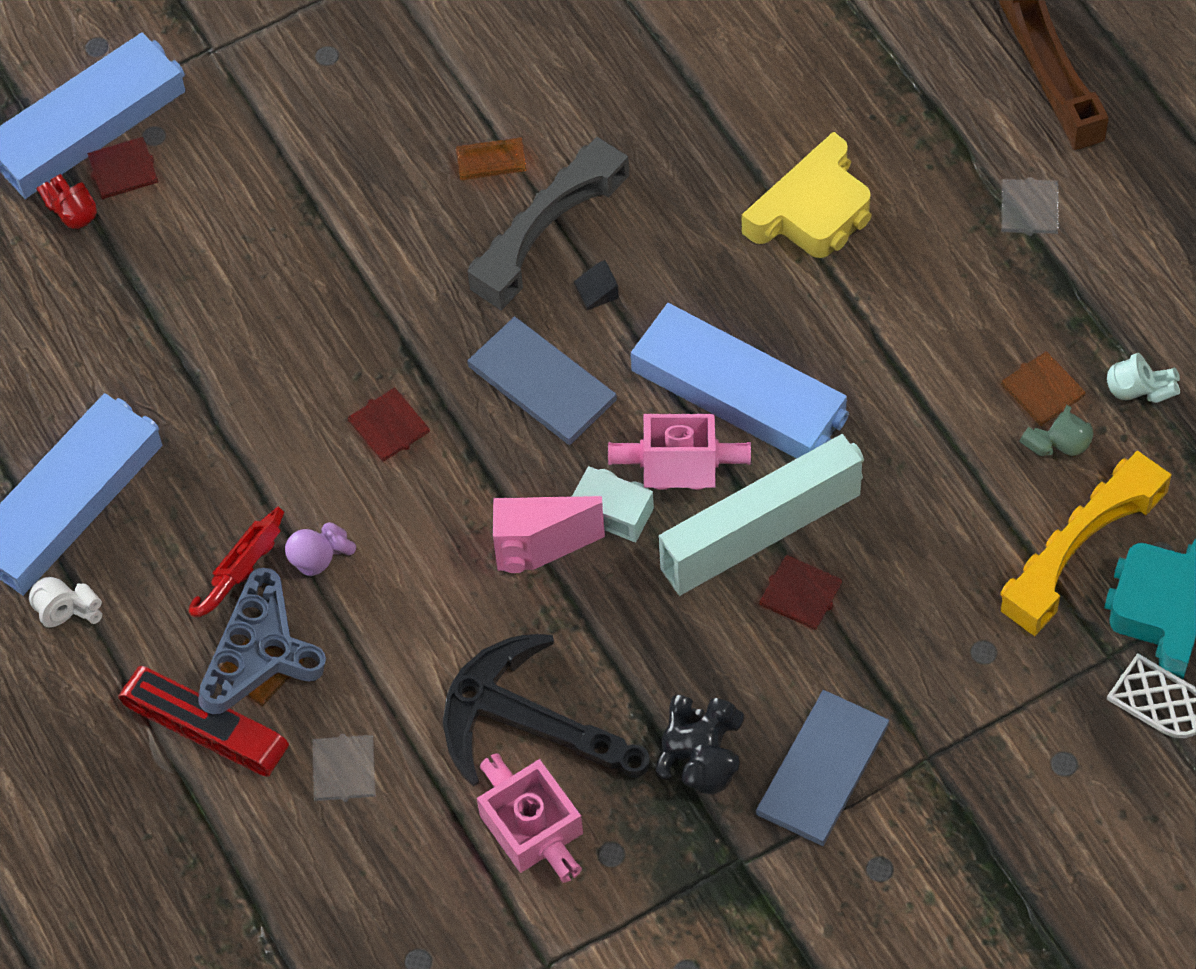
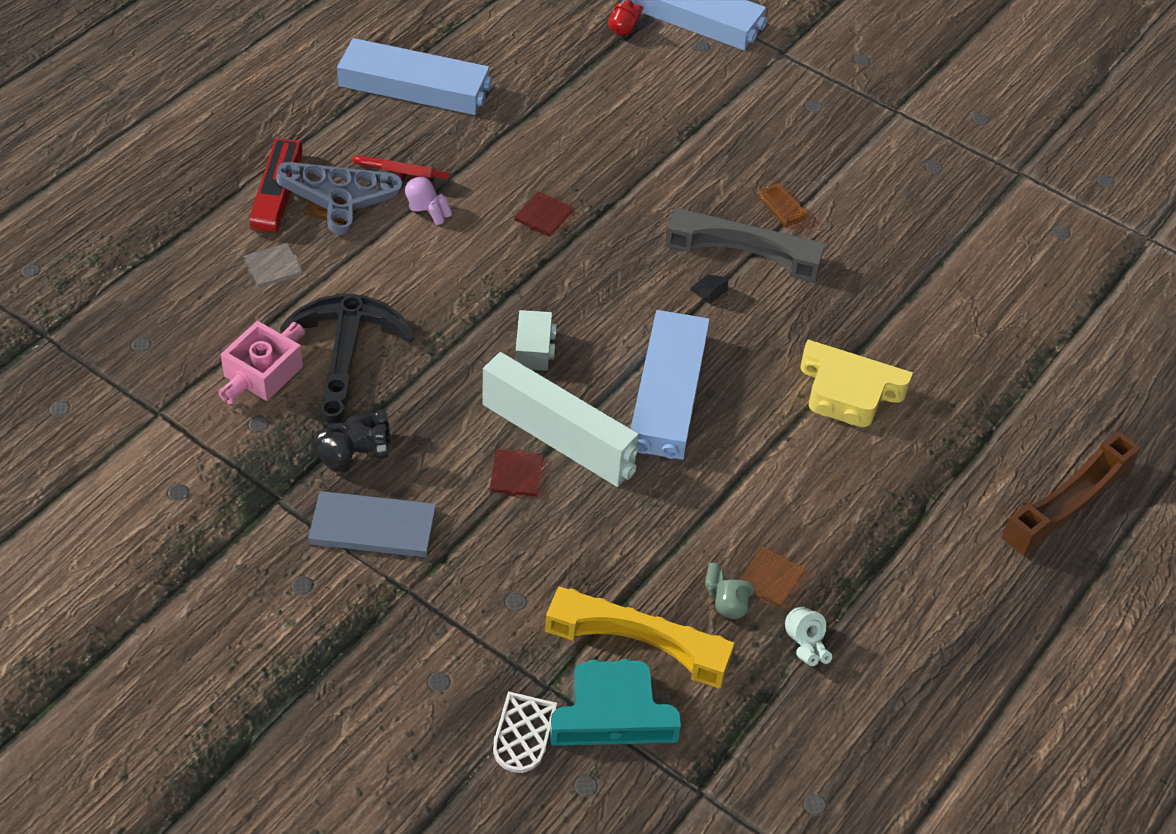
camera: 60 degrees right, 10 degrees down
(58, 602) = (334, 96): white piece -> none
(122, 167) = (668, 38): clear red piece -> none
(542, 380) = (617, 280): sand blue tile -> none
(543, 529) = (486, 301): bright pink slope -> none
(679, 451) = (588, 358): bright pink brick -> none
(1029, 206) = (932, 524): clear piece -> none

